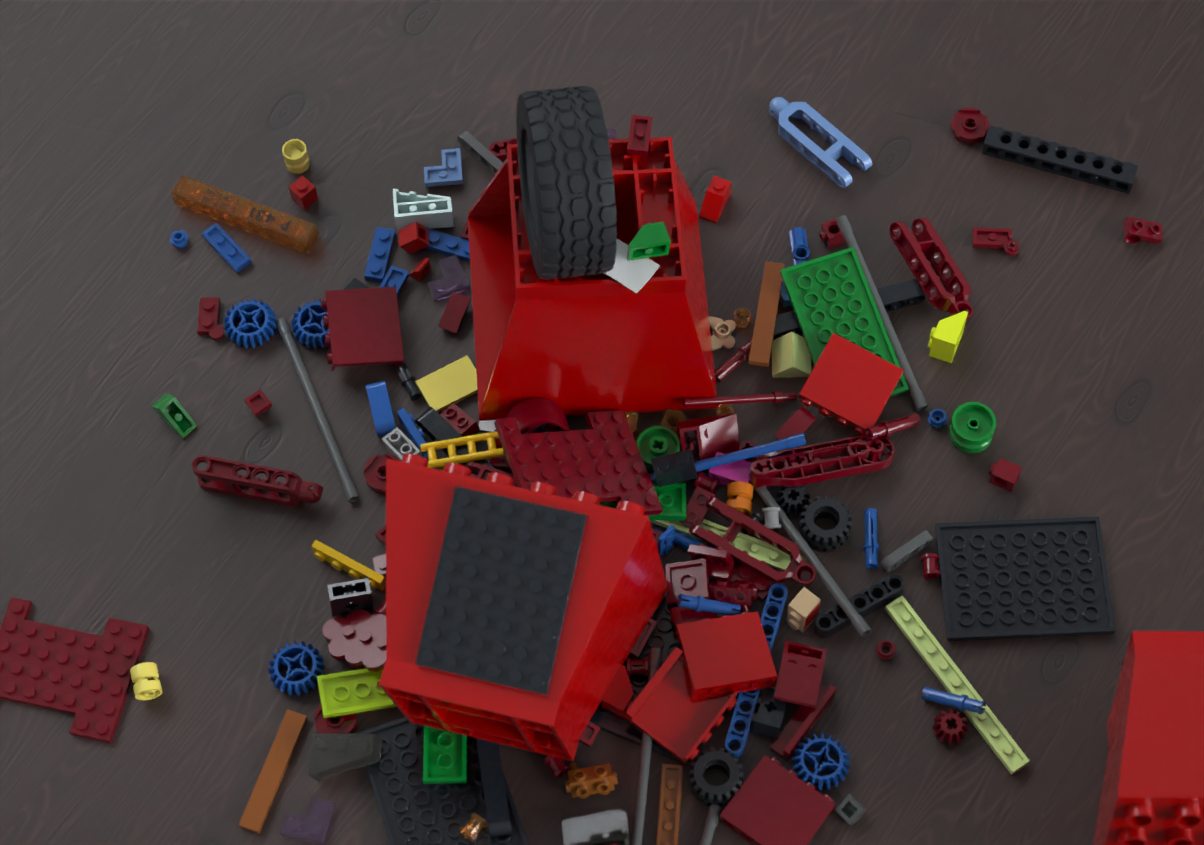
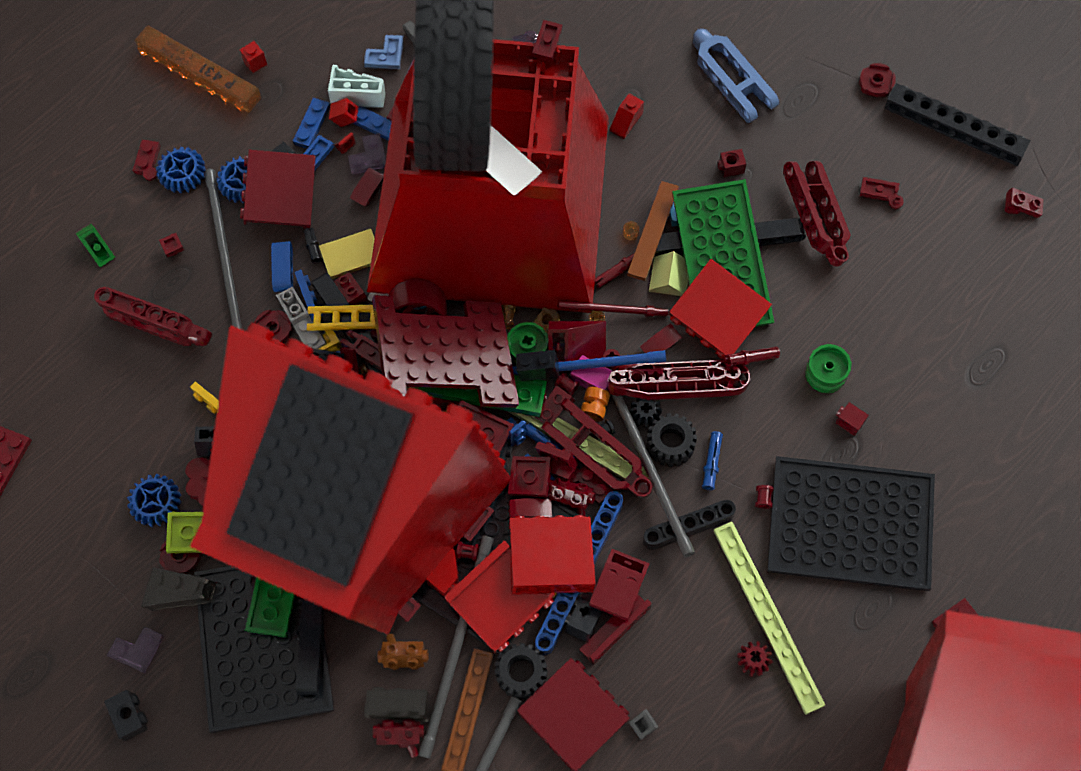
camera: 10 degrees right, 5 degrees up
(146, 681) = (15, 490): light yellow wheel -> none
(179, 243) = (135, 87): blue plate -> none
(226, 247) = (176, 97): blue tile -> none
(273, 771) = (113, 595): dark orange tile -> none
(296, 156) = (253, 22): light yellow wheel -> none
(471, 834) = (280, 689): clear orange bush -> none
(557, 766) = (375, 636): dark red bush -> none
(649, 242) = (534, 147): green slope -> none
(700, 604) = (537, 500): blue pin -> none
(722, 333) = (609, 242): tan animal -> none
(772, 517) = (621, 427): light grey bush -> none
(799, 245) = (696, 170): blue piece -> none
(803, 610) = (634, 521): tan brick -> none
(828, 765) = (633, 656): blue gear -> none
(885, 644) = (711, 567): dark red plate -> none
(907, 551) = (744, 478): dark grey beam -> none
(916, 394) = (781, 328): dark grey piece -> none
(937, 413) = (800, 351): blue plate -> none
(946, 337) = (819, 277): neon yellow slope -> none
(961, 702) = (769, 636): blue pin -> none

